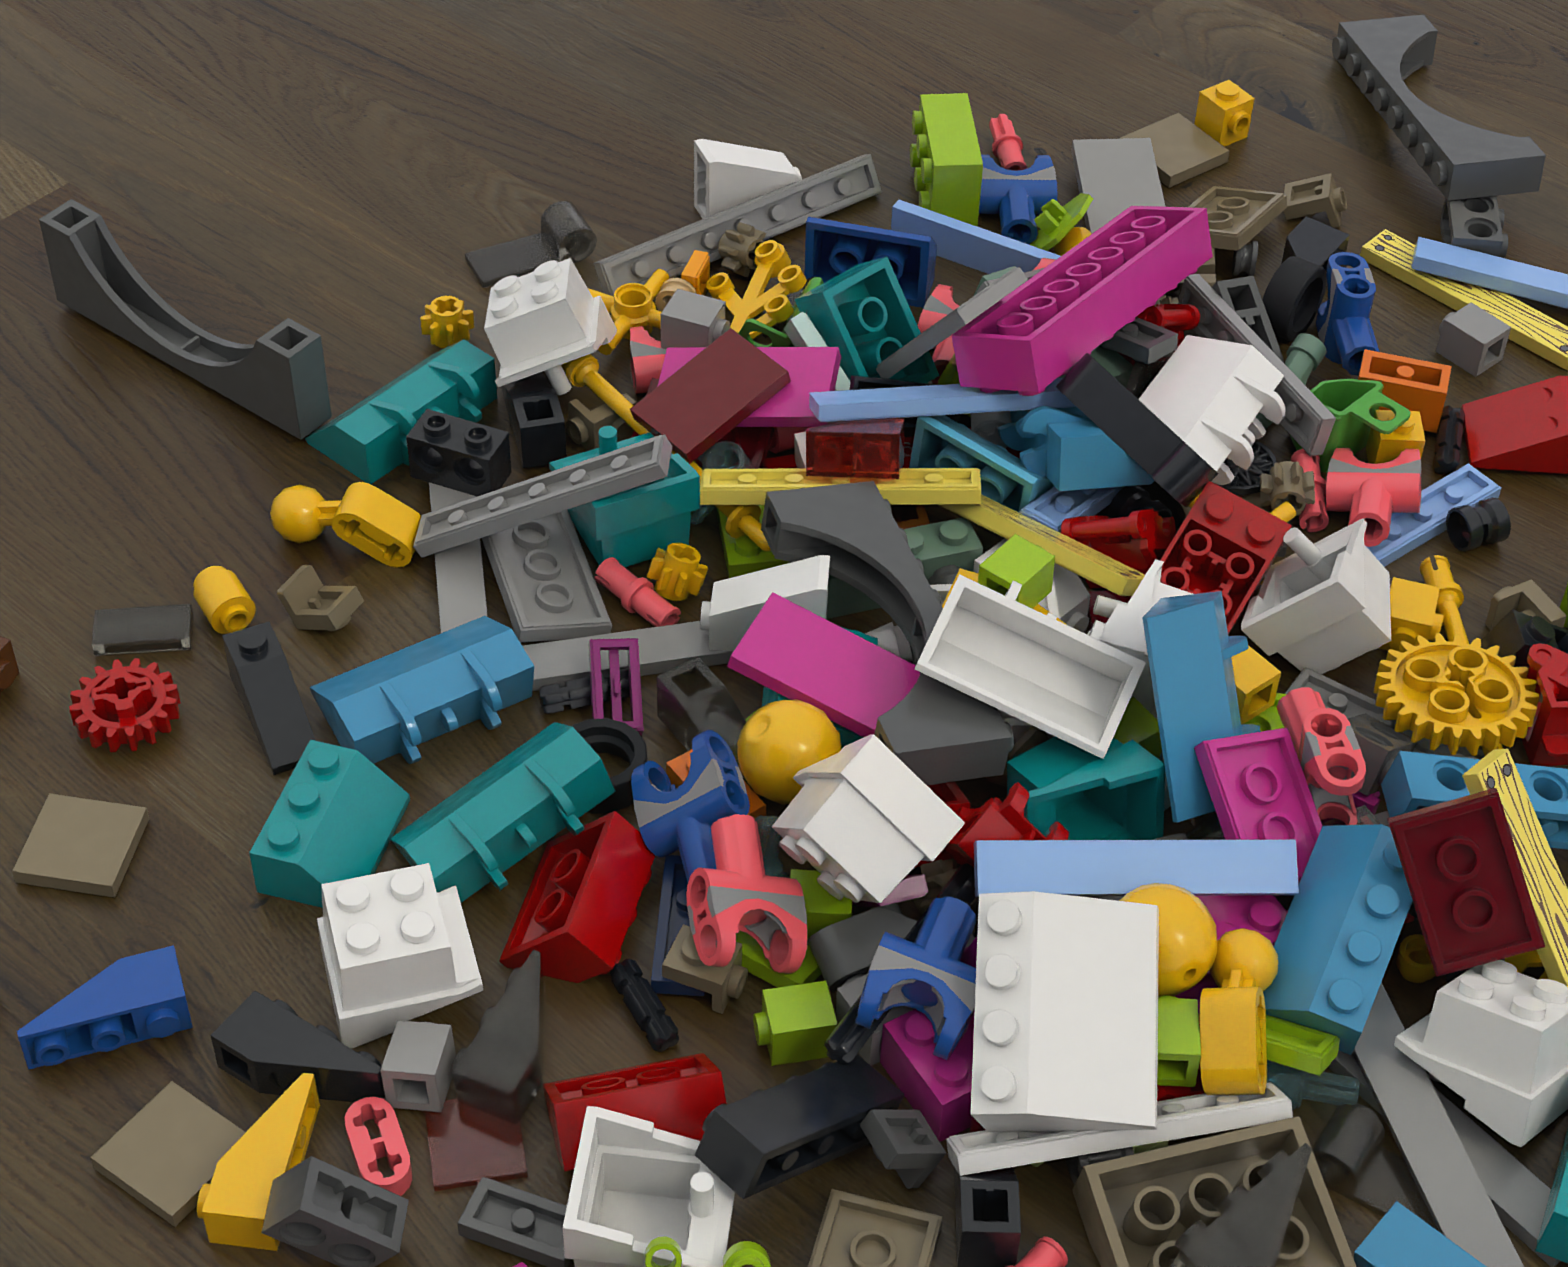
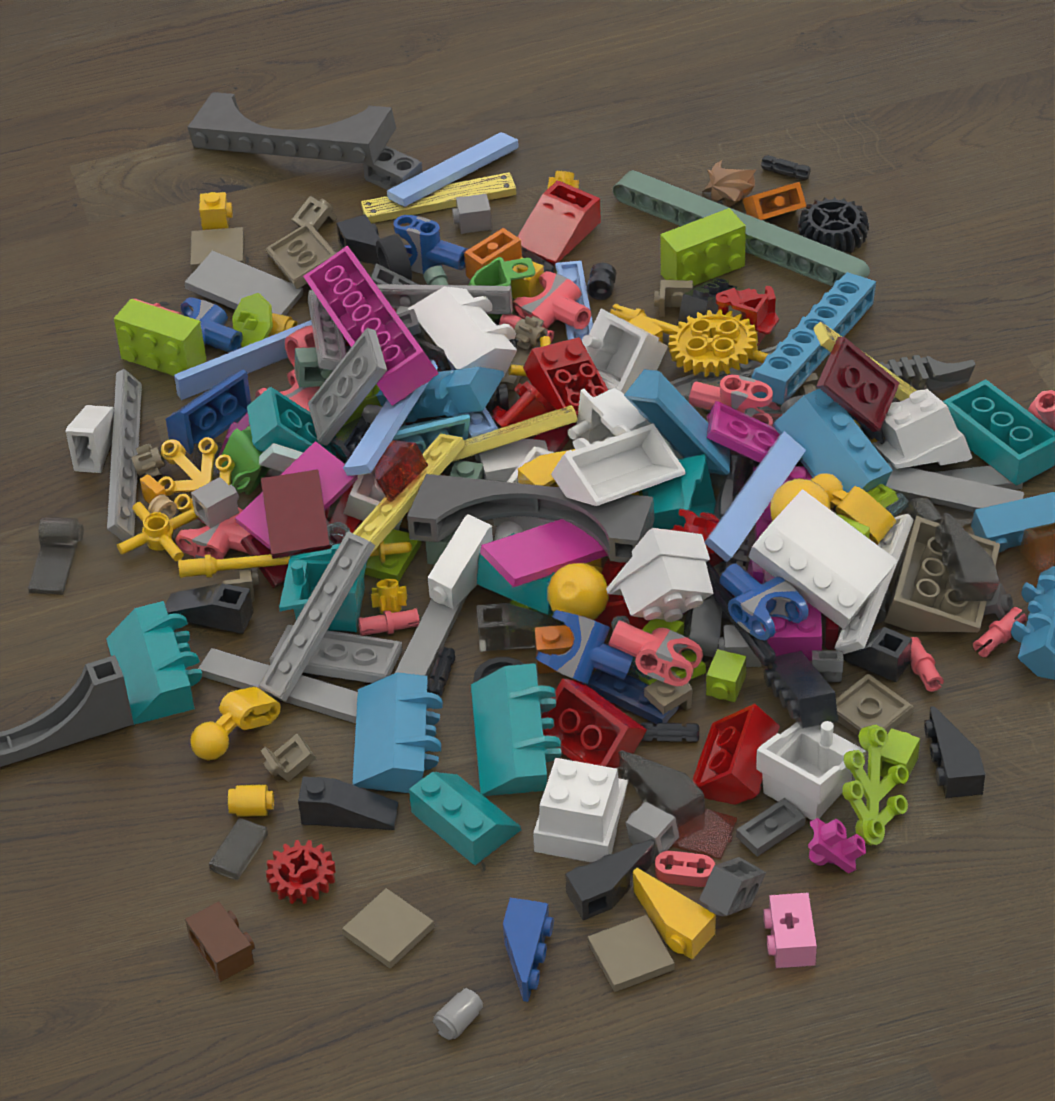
camera: 55 degrees left, 0 degrees up
(447, 321) = (93, 617): yellow gear -> none
(458, 453) = (229, 648): black brick -> none
(545, 322) = (171, 564): white piece -> none
(613, 647) = (453, 658): magenta tile -> none
(1023, 563) = (550, 444): lime brick -> none
(1136, 430) = (507, 356): black beam -> none

